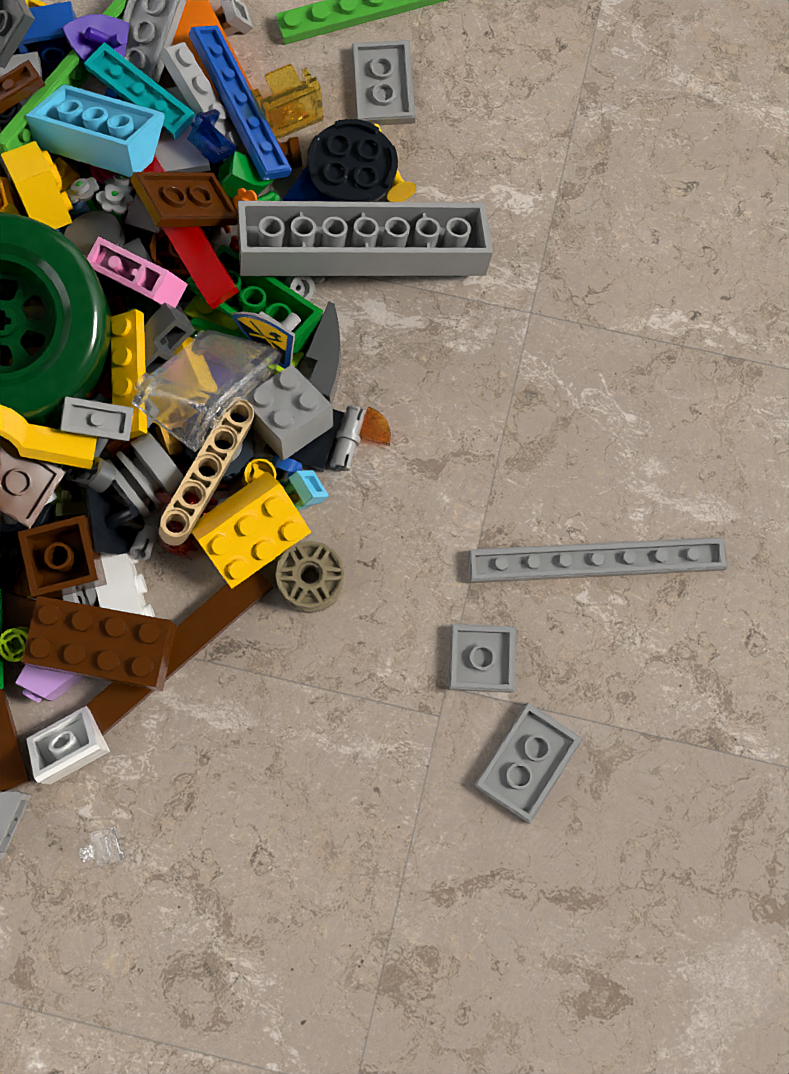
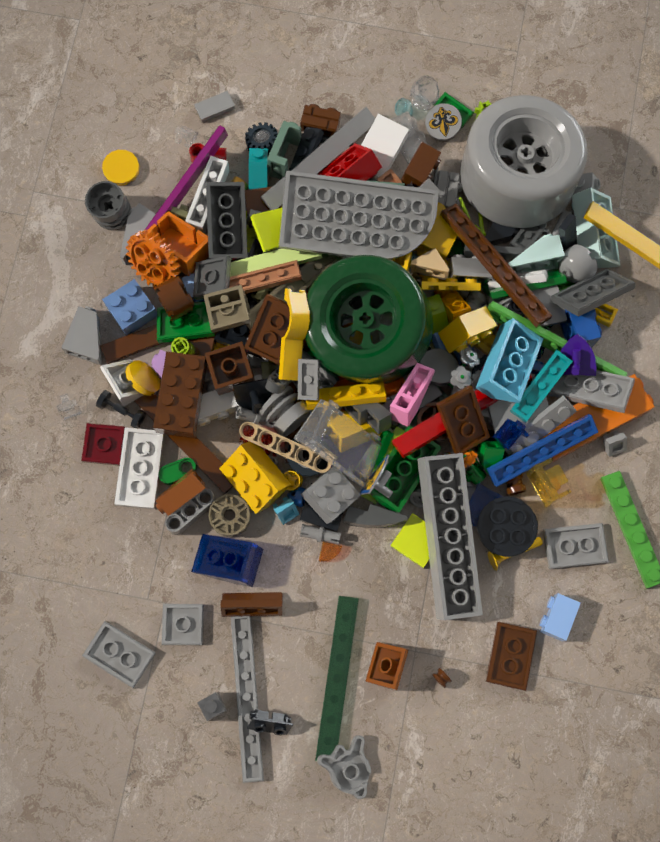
camera: 85 degrees right, 0 degrees up
(61, 713) = (143, 377): none -> yellow tile
(113, 758) = (104, 399): none -> black wheel
(173, 788) = (103, 444): none -> dark red tile
(220, 725) = (139, 468): none -> white plate
(230, 669) = (173, 472): none -> green piece
(268, 650) = (180, 492): none -> dark orange slope
(295, 624) = (186, 521): none -> light grey beam
(365, 301) = (413, 541): none -> neon yellow tile
(382, 583) = (228, 560): none -> clear blue slope
(454, 545) = (251, 604): none -> reddish brown panel
(487, 108) = (559, 617): none -> light blue brick
(540, 180) = (511, 656): none -> reddish brown tile
(555, 346) = (387, 666): none -> dark orange slope
(571, 424) = (337, 675): none -> clear green tile
(572, 273) = (442, 678): none -> reddish brown bush
(614, 610) = (212, 706): none -> flat silver brick
(639, 510) = (279, 724): none -> black hinge
(703, 411) = (348, 768): none -> light grey tile

